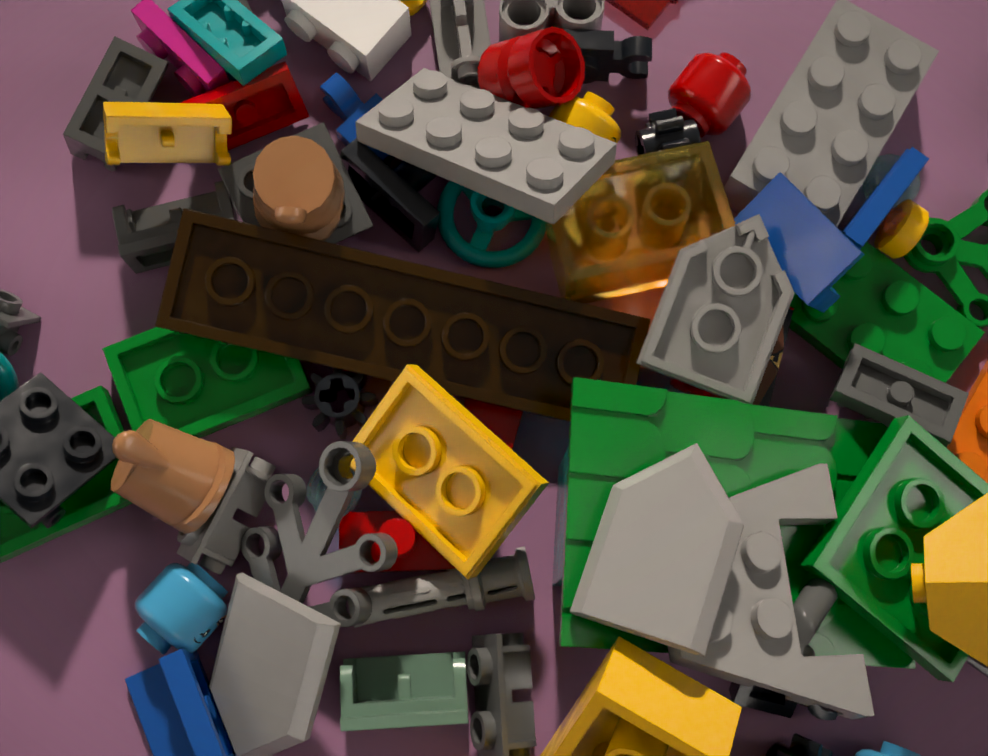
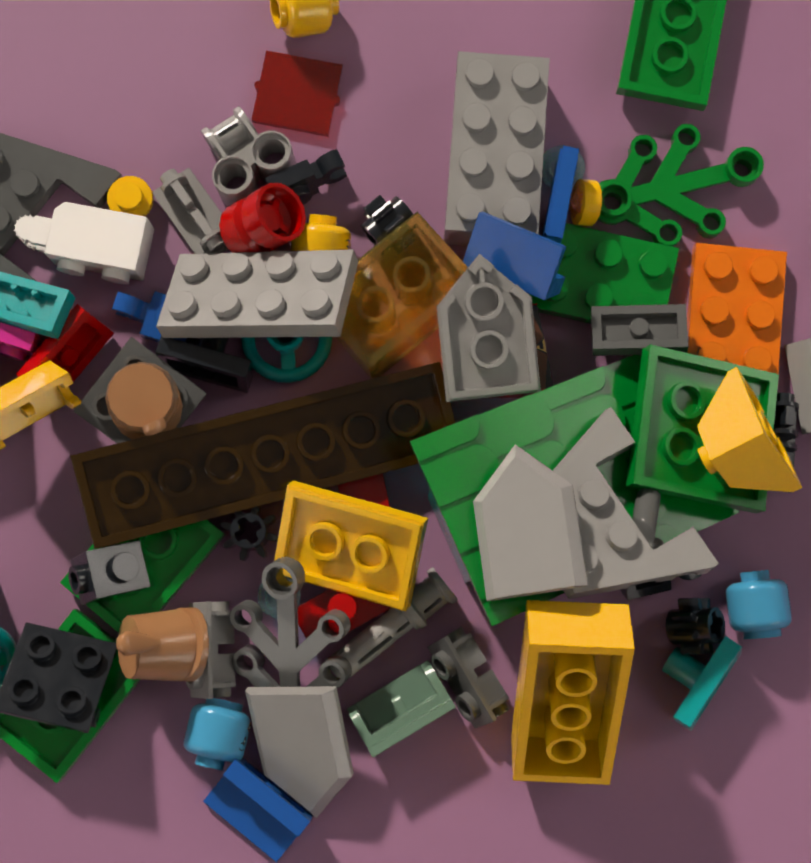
camera: 25 degrees left, 5 degrees up
(150, 233) = (50, 475): dark grey hinge -> none
(159, 361) = (108, 572): none -> bracket
(711, 92) = (399, 167): red head -> none

